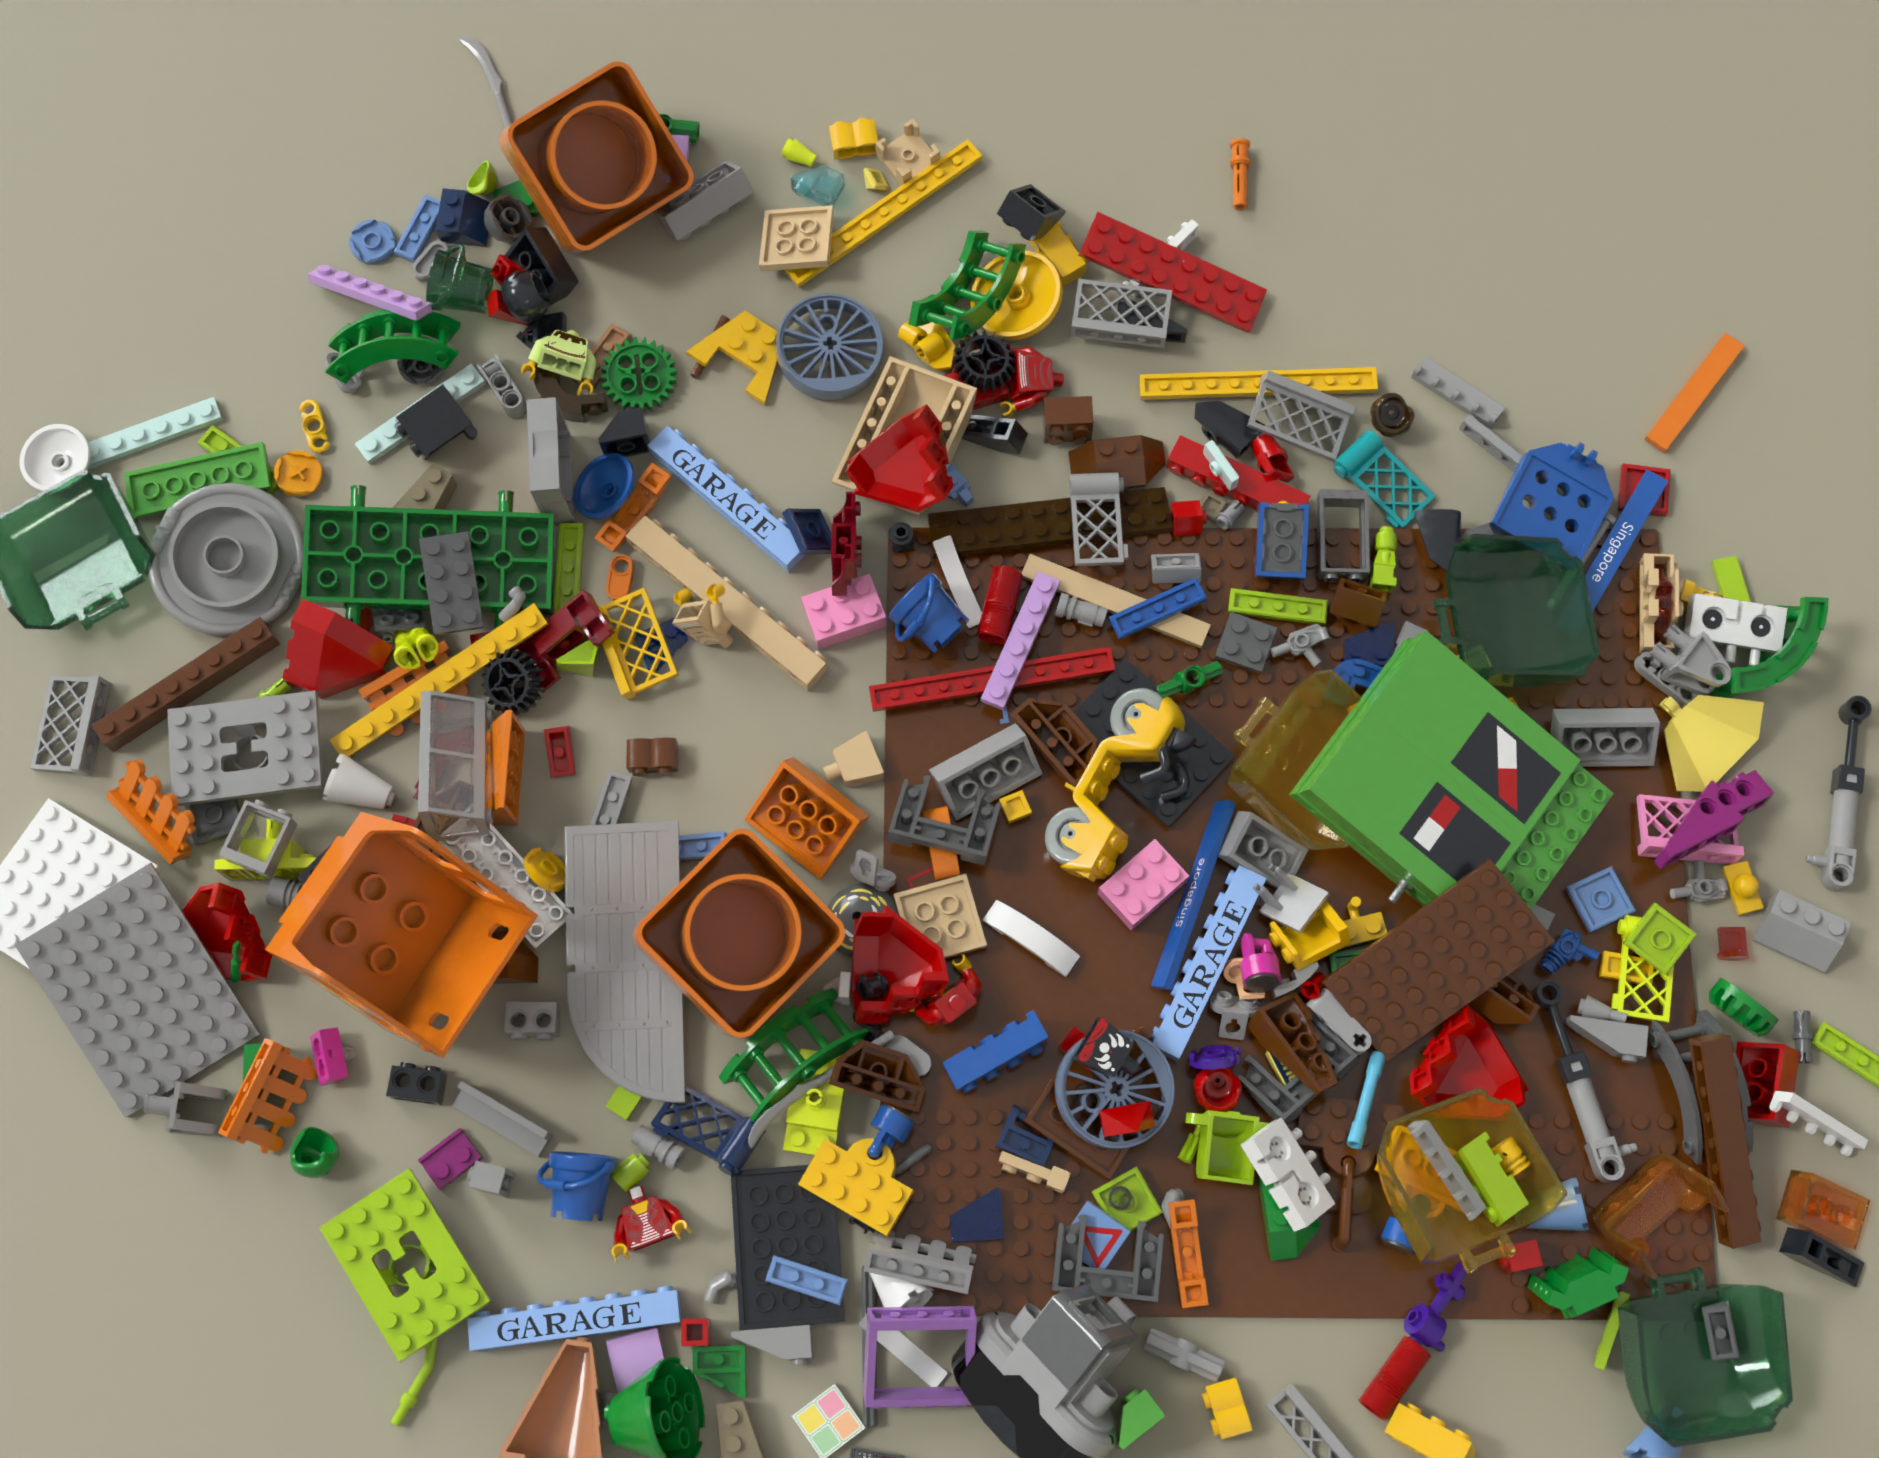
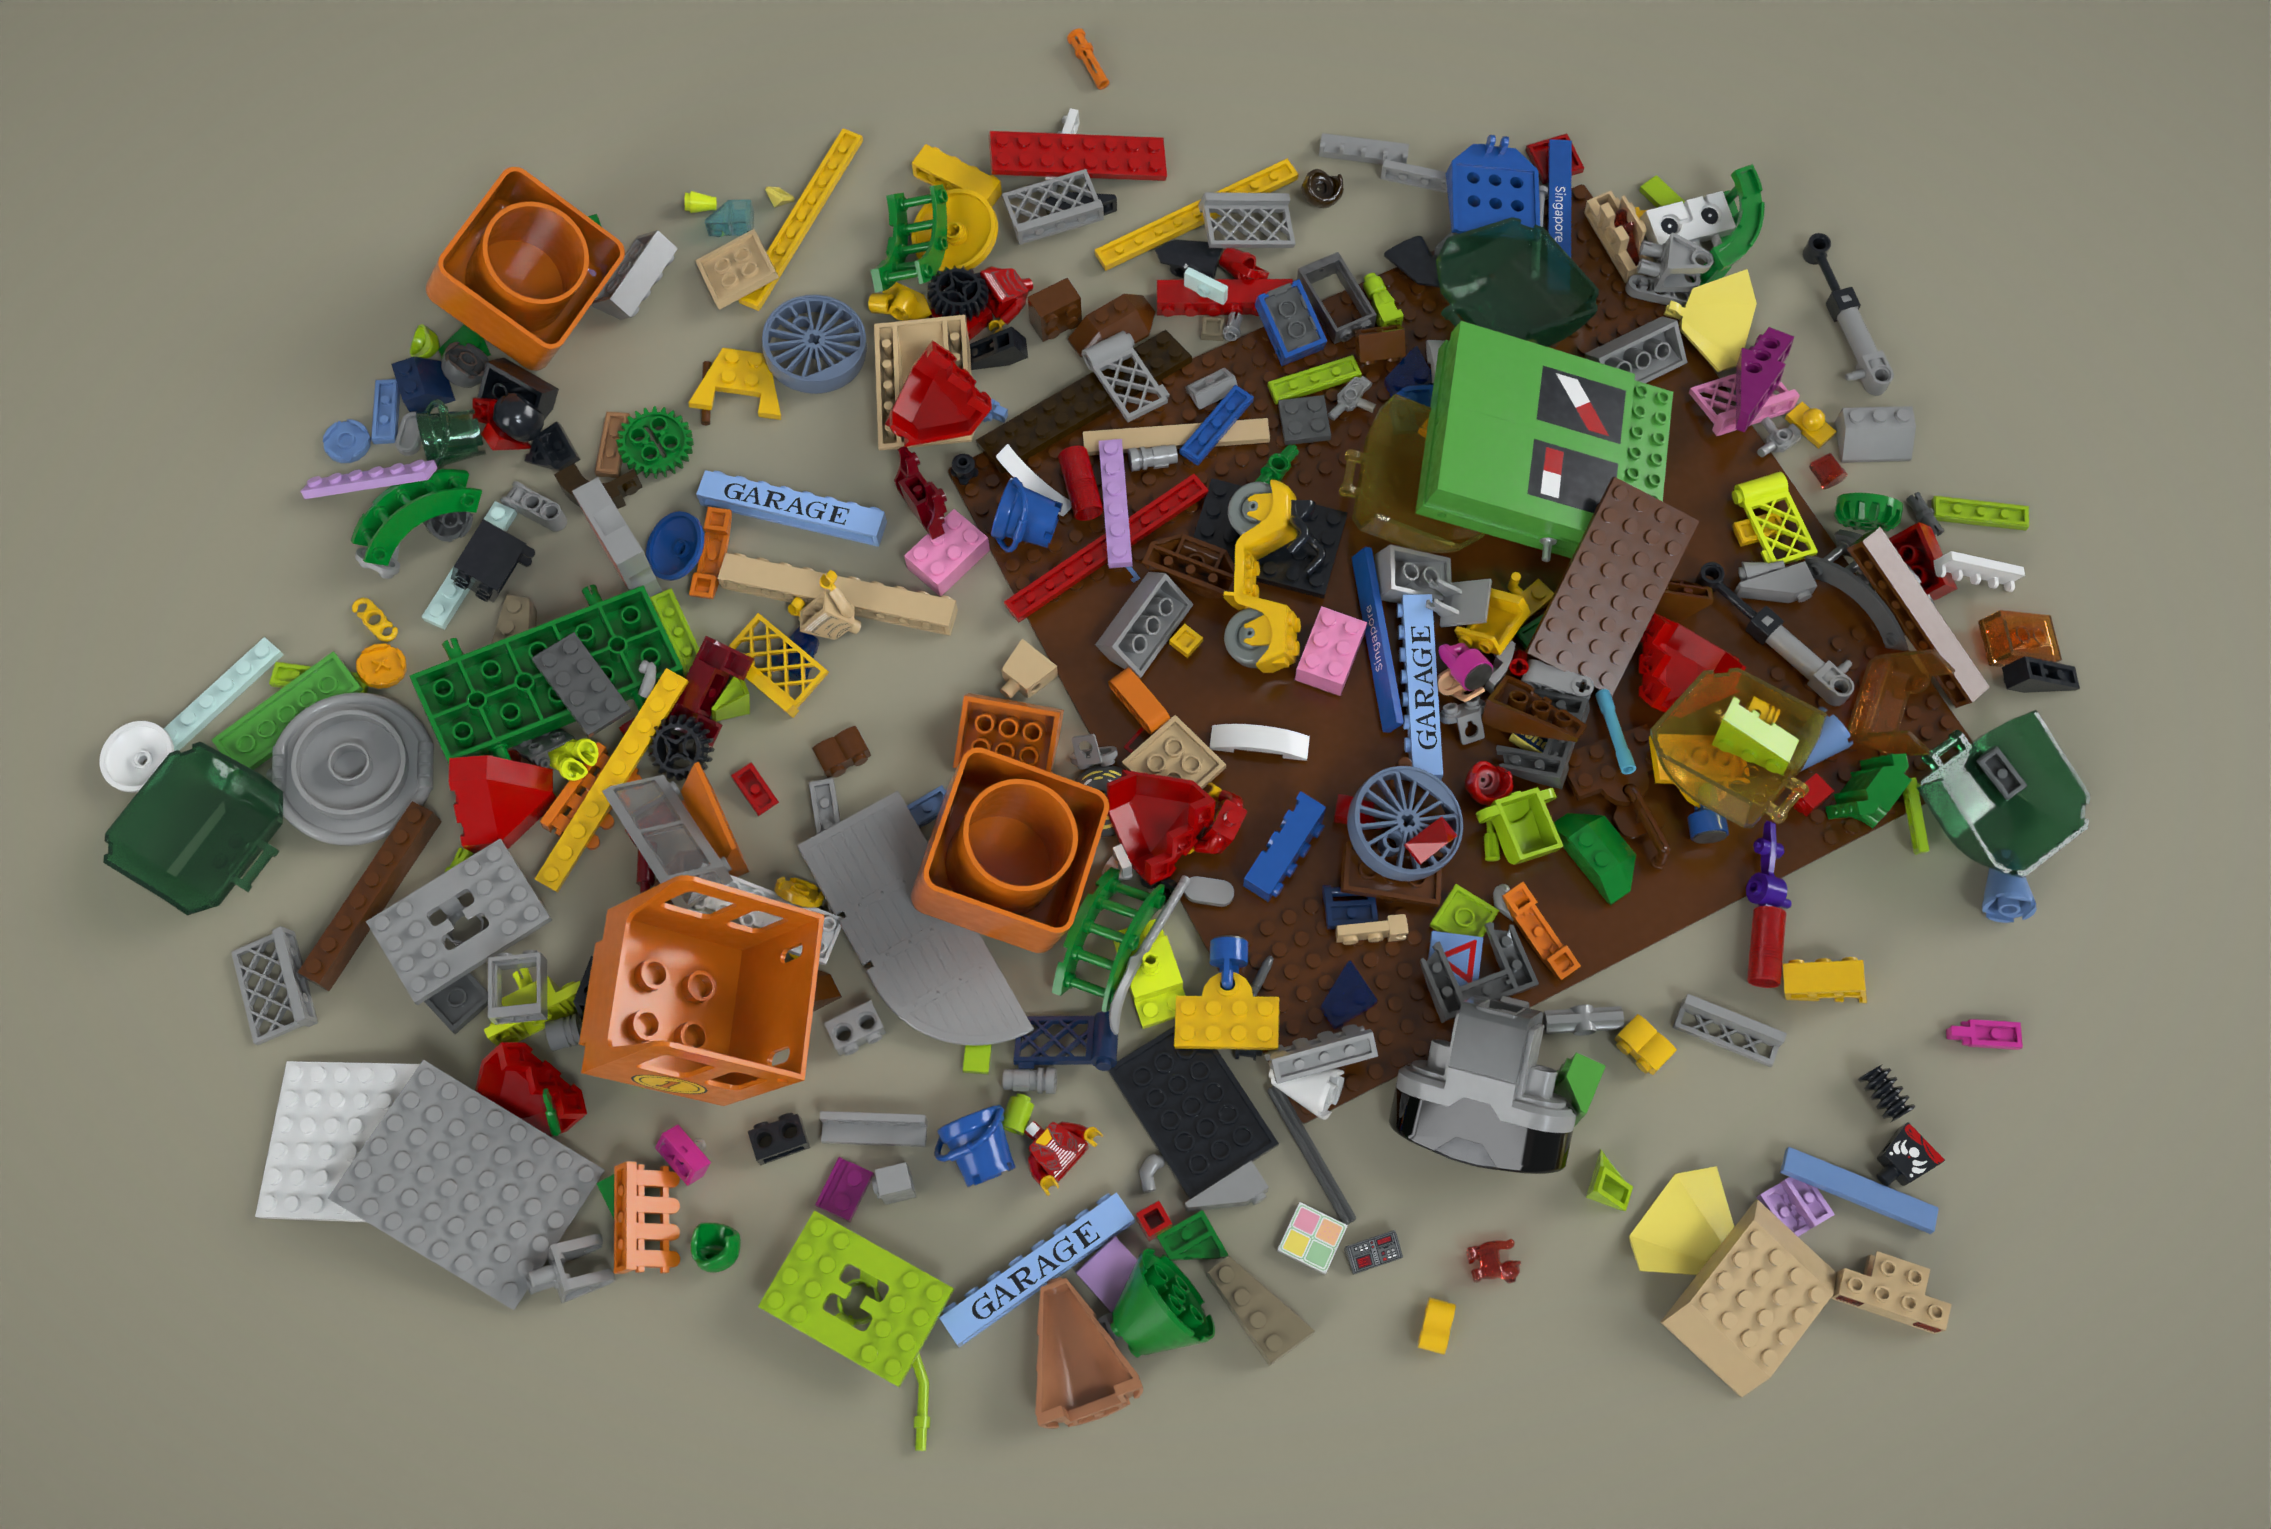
camera: 30 degrees left, 5 degrees down
(146, 820) = (395, 1032): orange fence -> none
(357, 786) = (581, 905): white cone -> none
(494, 80) = (392, 262): light grey piece -> none
(565, 355) = (580, 452): yellowish green torso -> none
(619, 583) = (732, 622): orange piece -> none
(626, 434) = (673, 491): black slope -> none
(806, 1280) = (1227, 1124): medium blue tile -> none
(809, 530) = (880, 499): dark blue tile -> none
(853, 138) = (742, 170): yellow brick -> none
(872, 986) = (1146, 847): black brick -> none
(879, 1075) = (1196, 916): reddish brown wedge -> none
(906, 154) = (795, 163): tan panel -> none
(910, 1355) = (1342, 1141): white sticker -> none
(915, 1319) = (1342, 1101): medium lavender window -> none
(970, 843) = (1166, 684): dark grey wedge -> none
(1030, 212) = (930, 159): black slope -> none
(1105, 1050) = (1383, 789): torso -> none
(1114, 1192) = (1461, 908): clear smoke bush -> none
(1187, 517) = (1200, 343): red brick -> none
(1215, 1057) = (1471, 759): dark purple tile -> none
(1284, 1164) = (1580, 812): white piece -> none
(1361, 456) = (1317, 227): teal piece -> none
(1447, 1168) = (1718, 743): light grey hinge -> none
(1566, 949) = (1703, 538): blue piece -> none
(1600, 899) = (1706, 485): medium blue tile -> none
(1659, 938) = (1774, 488): lime tile -> none
(1694, 392) = (1551, 68): orange tile -> none

